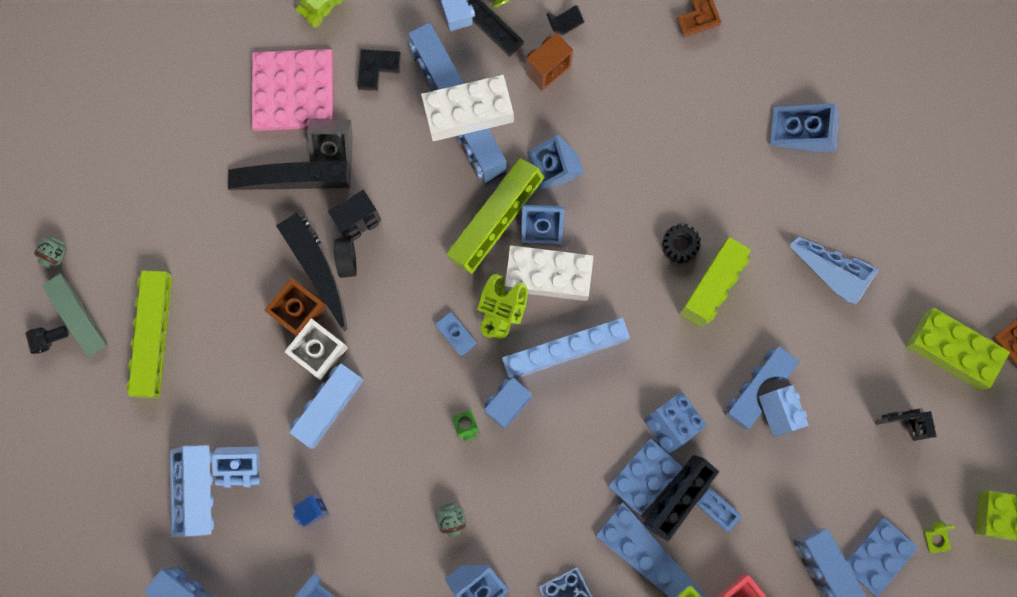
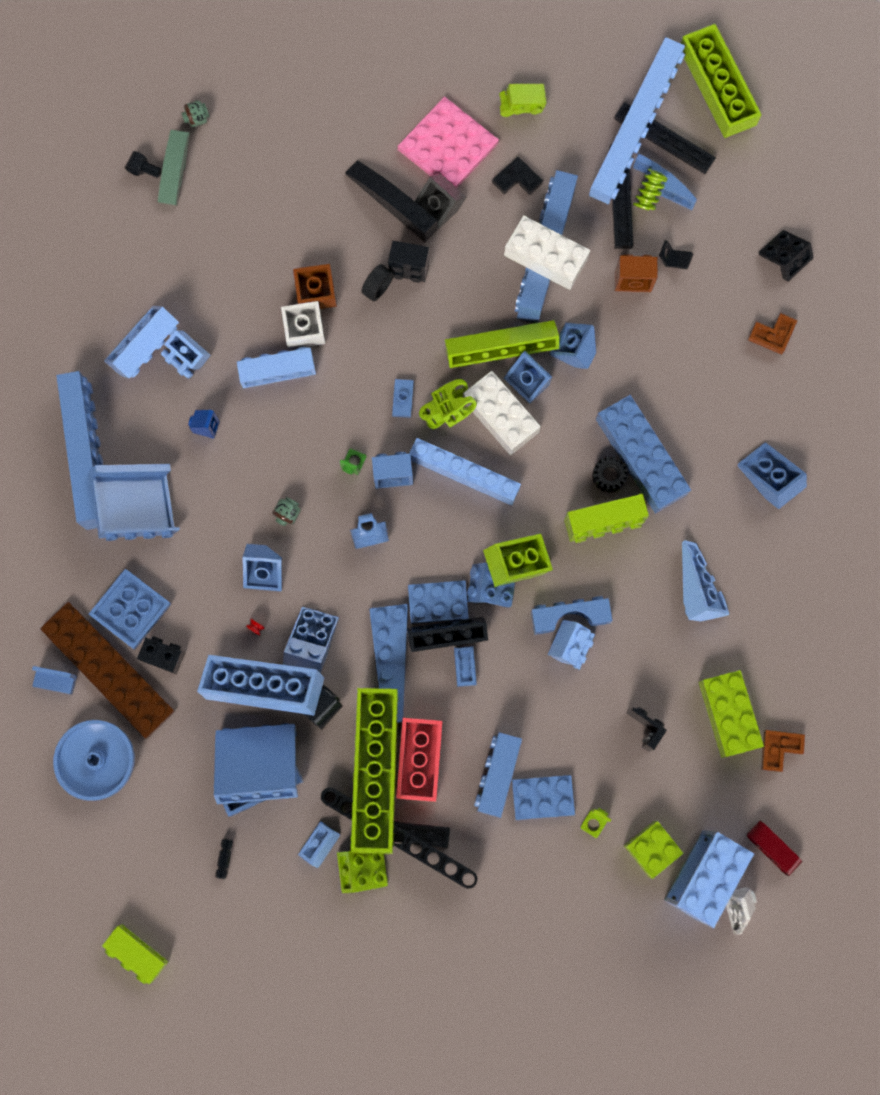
camera: 40 degrees right, 0 degrees up
(150, 335) = (208, 222): lime brick -> none
(312, 259) = (355, 267): black slope -> none
(540, 477) = (373, 536): none -> medium blue piece
(680, 383) = (517, 560): none -> lime brick
(692, 203) = (643, 454): none -> medium blue brick

